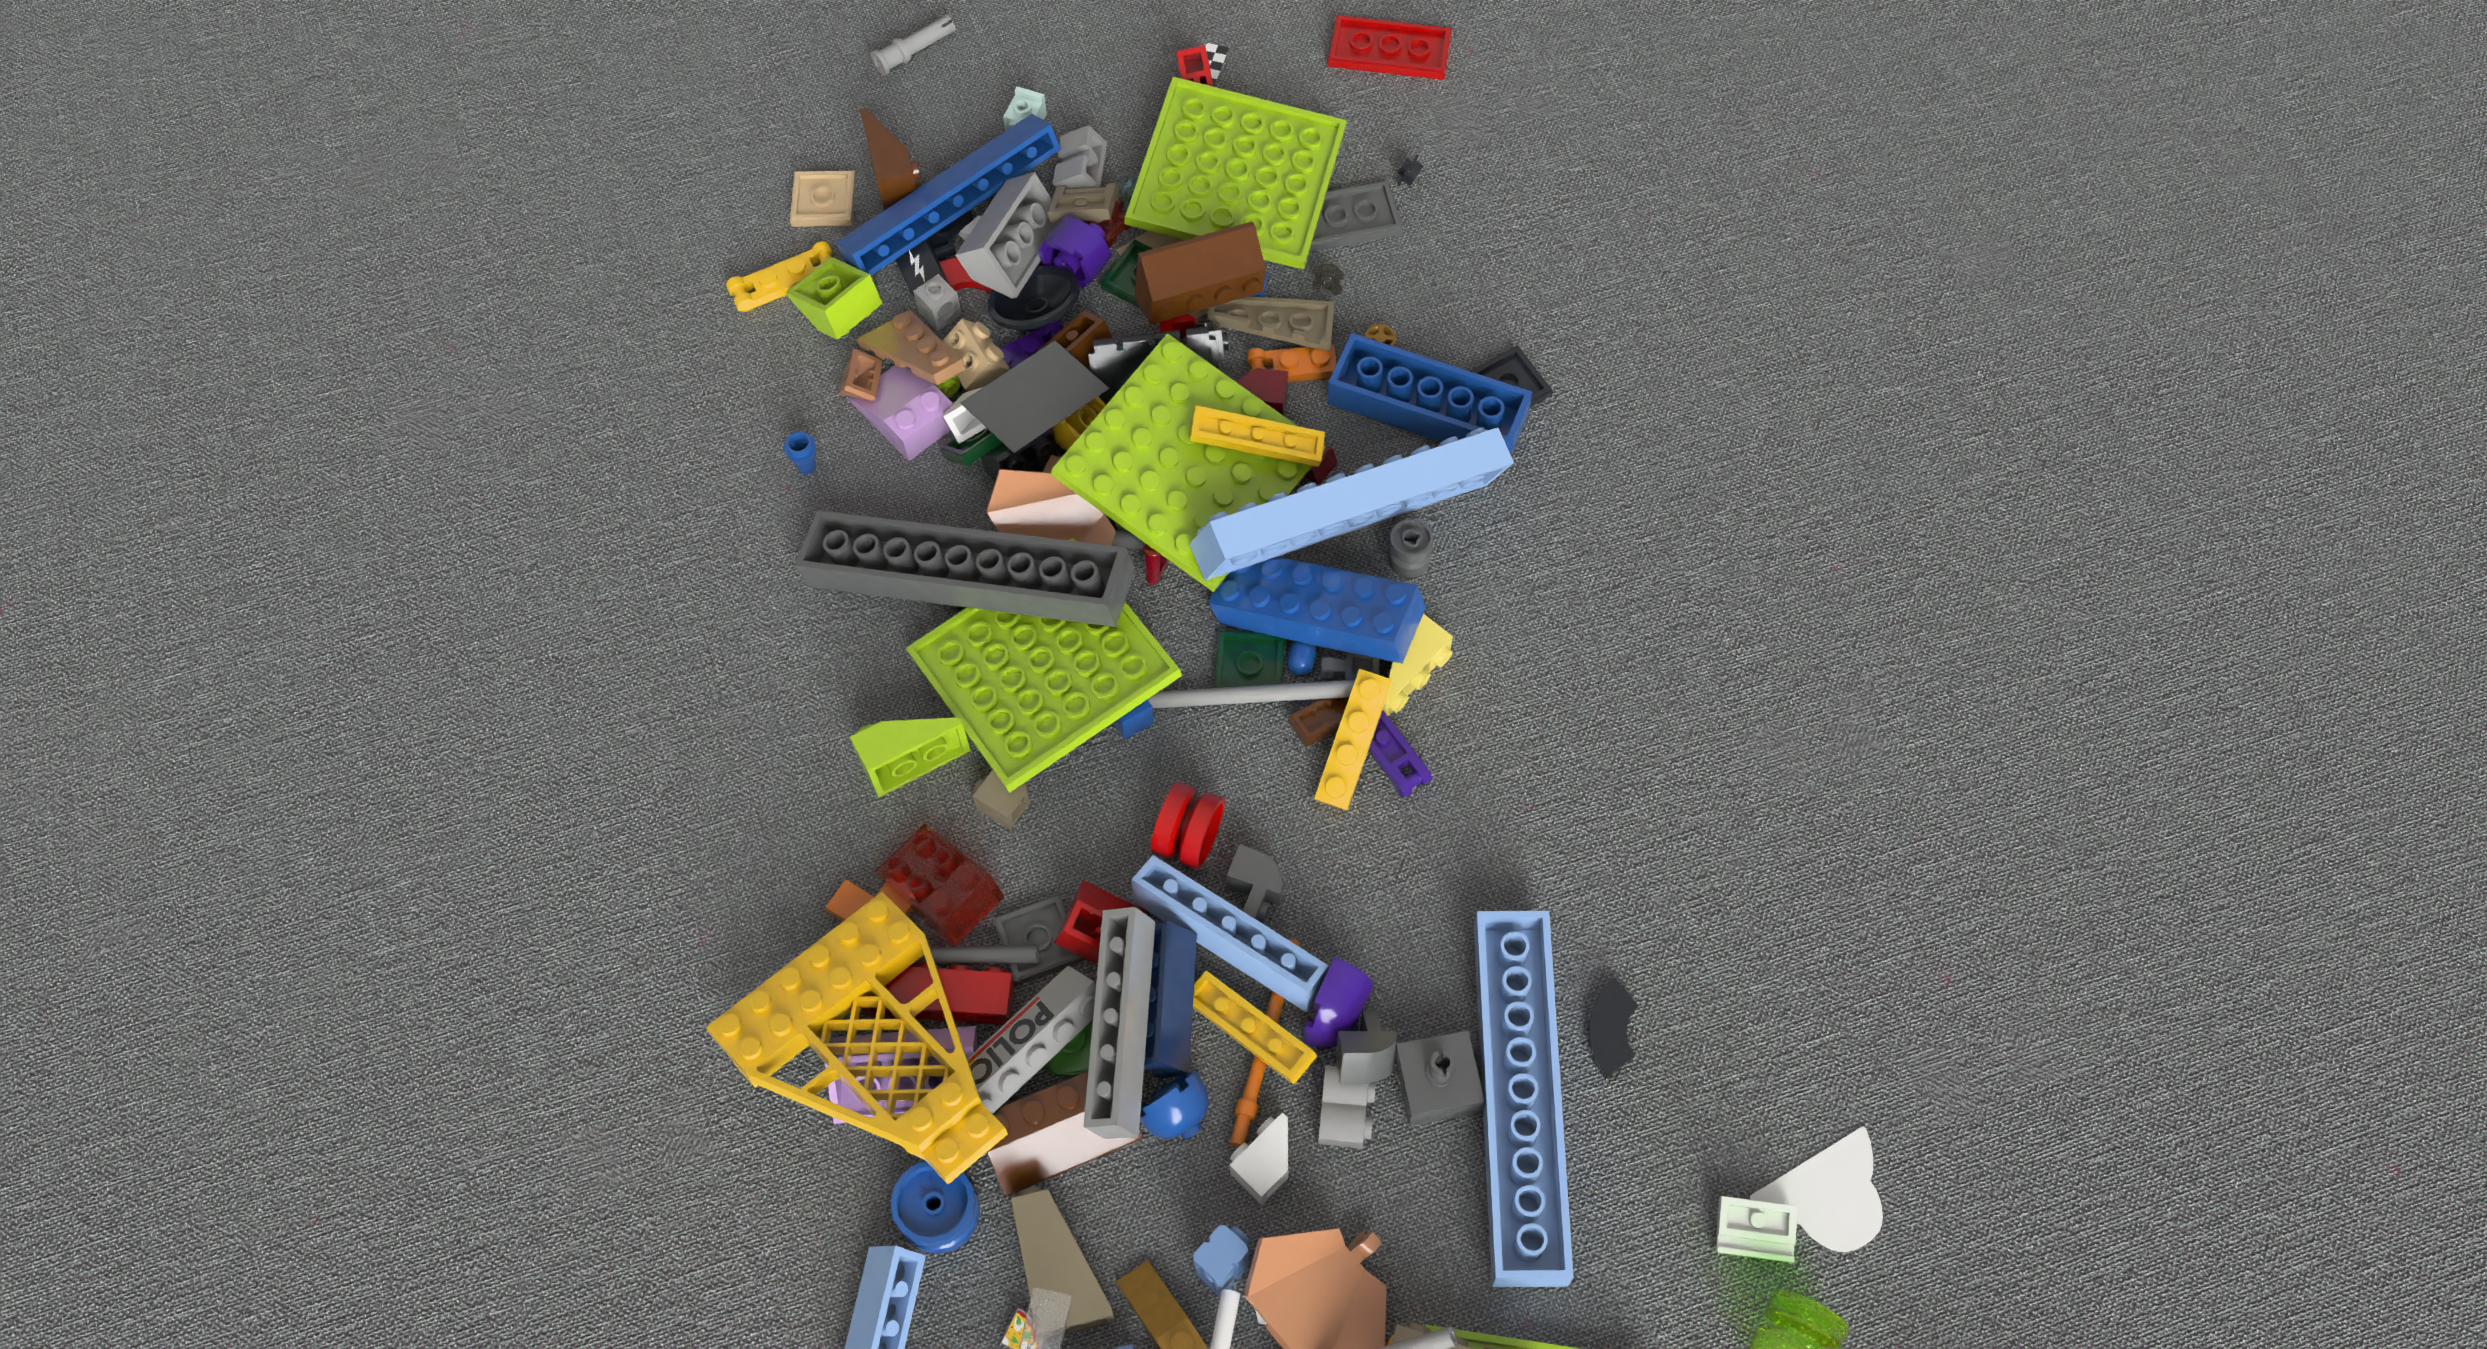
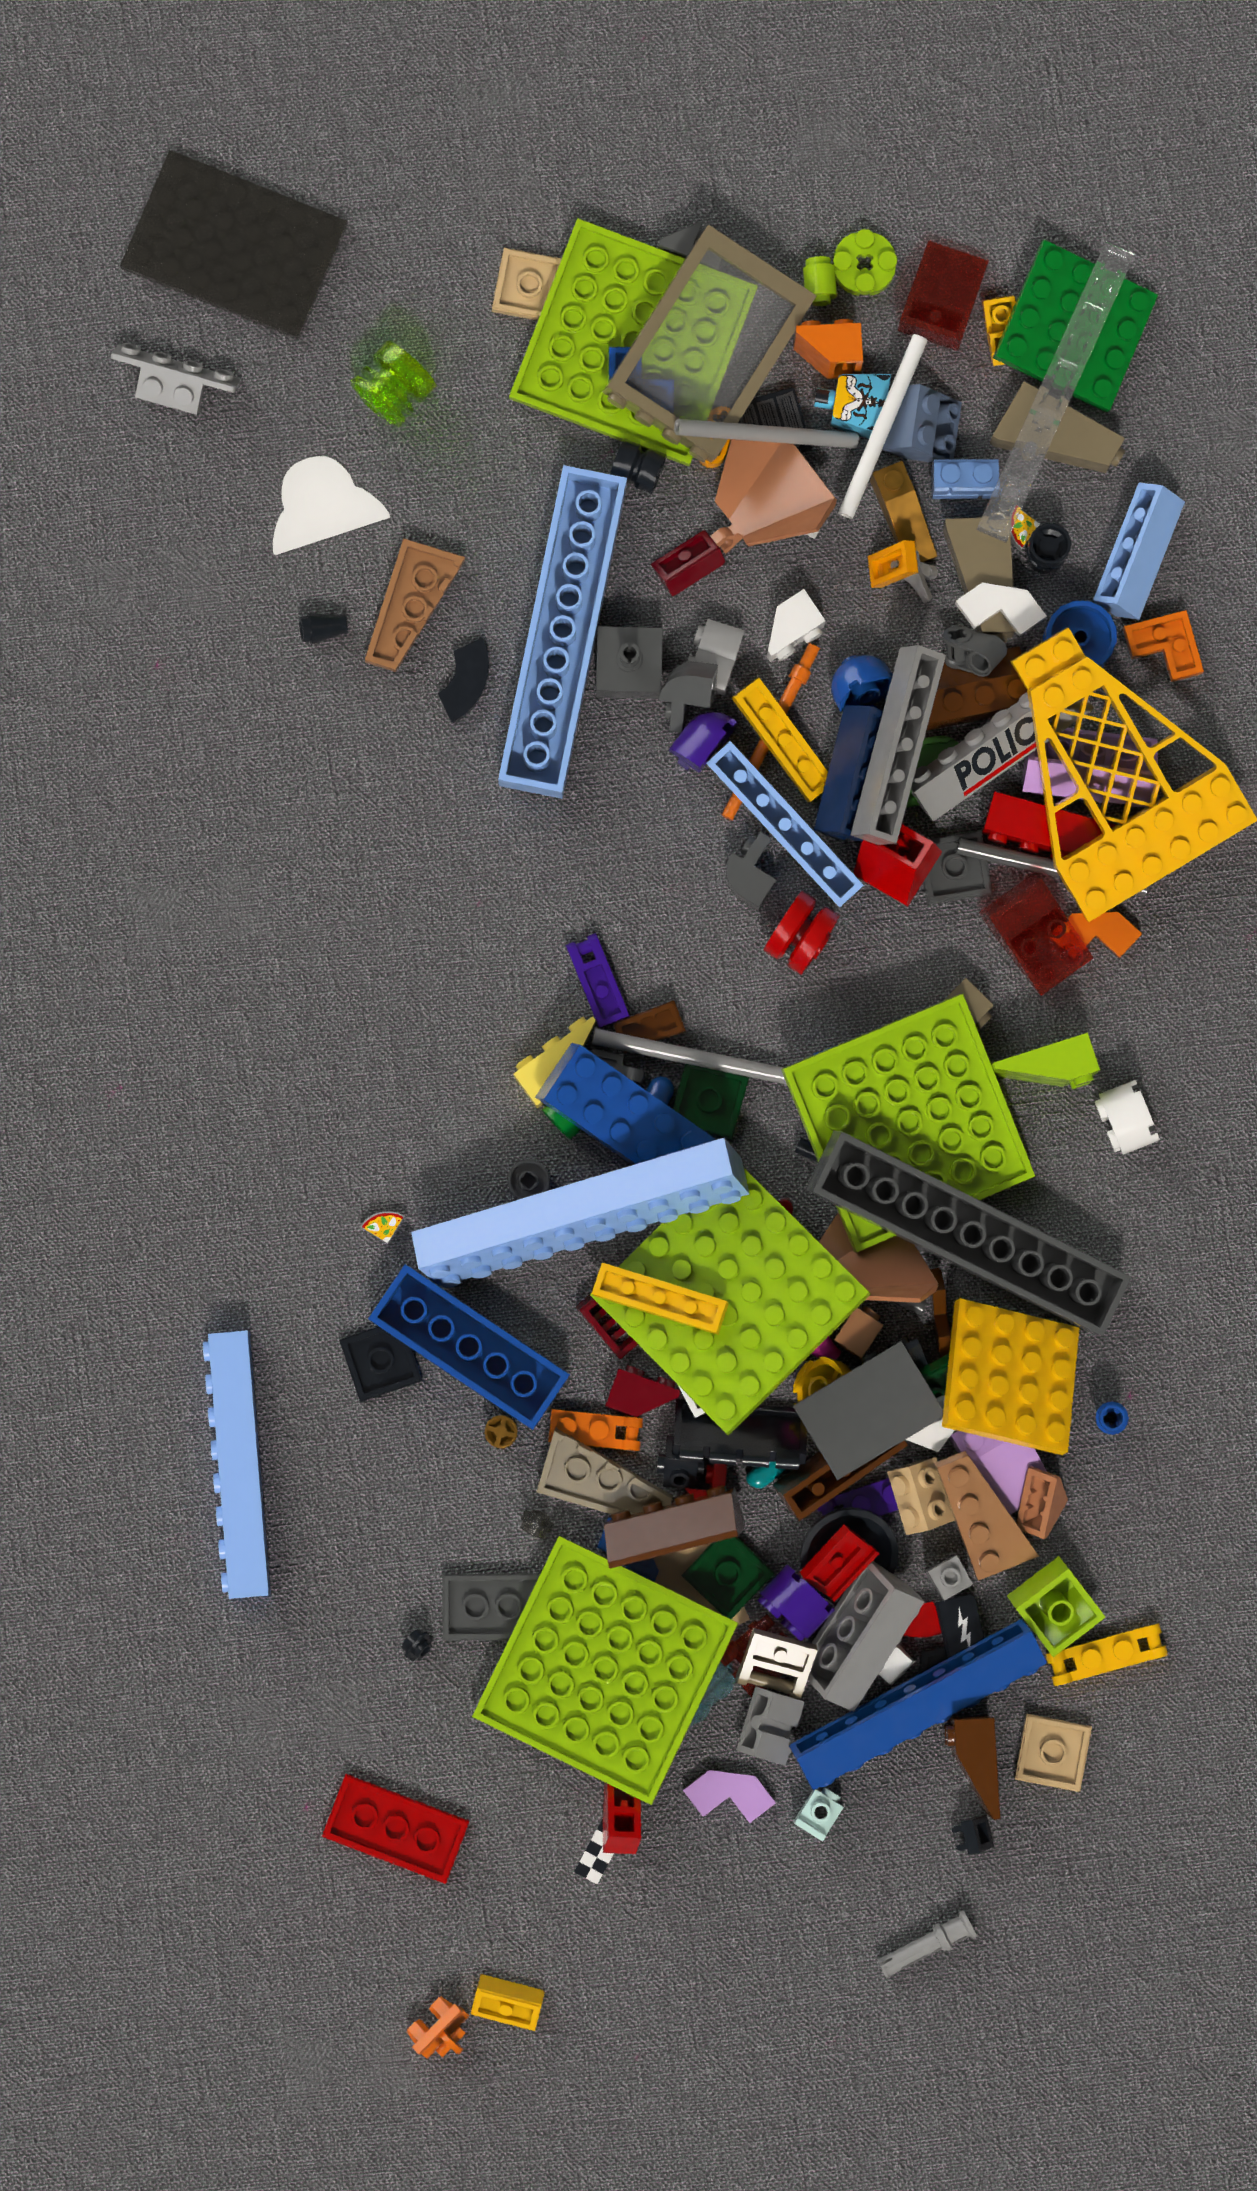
camera: 175 degrees left, 20 degrees up
(818, 717) = (1127, 1117): none -> white brick
(834, 1240) = (1169, 635): none -> orange plate
(887, 118) = (976, 1834): none -> black tile
(905, 456) = (1010, 1377): none -> yellow plate
(978, 501) = (939, 1315): none -> reddish brown tile
(986, 1309) = (1048, 548): none -> black wheel
(1041, 280) = (839, 1563): none -> red plate
(1045, 1225) = (1014, 603): none -> white tile
(1055, 1167) = (974, 652): none -> dark grey piece
(1120, 120) = (743, 1789): none -> lavender tile
(1153, 1247) = (900, 563): none -> light orange piece
(1222, 1258) = (846, 544): medium blue brick -> none
(1353, 739) = (630, 990): yellow plate -> none
(1400, 1212) = (688, 563): none -> dark red slope
(1485, 1307) = (638, 466): none -> black wheel
(1540, 493) = (383, 1225): none -> tile
(1614, 276) = (238, 1464): none -> light blue brick
(1698, 1106) = (412, 595): none -> medium nougat wing
(1756, 1229) = (395, 485): white plate -> none
(1787, 1050) = (320, 627): none -> black cone
(2052, 1302) = (171, 381): none -> light grey bracket

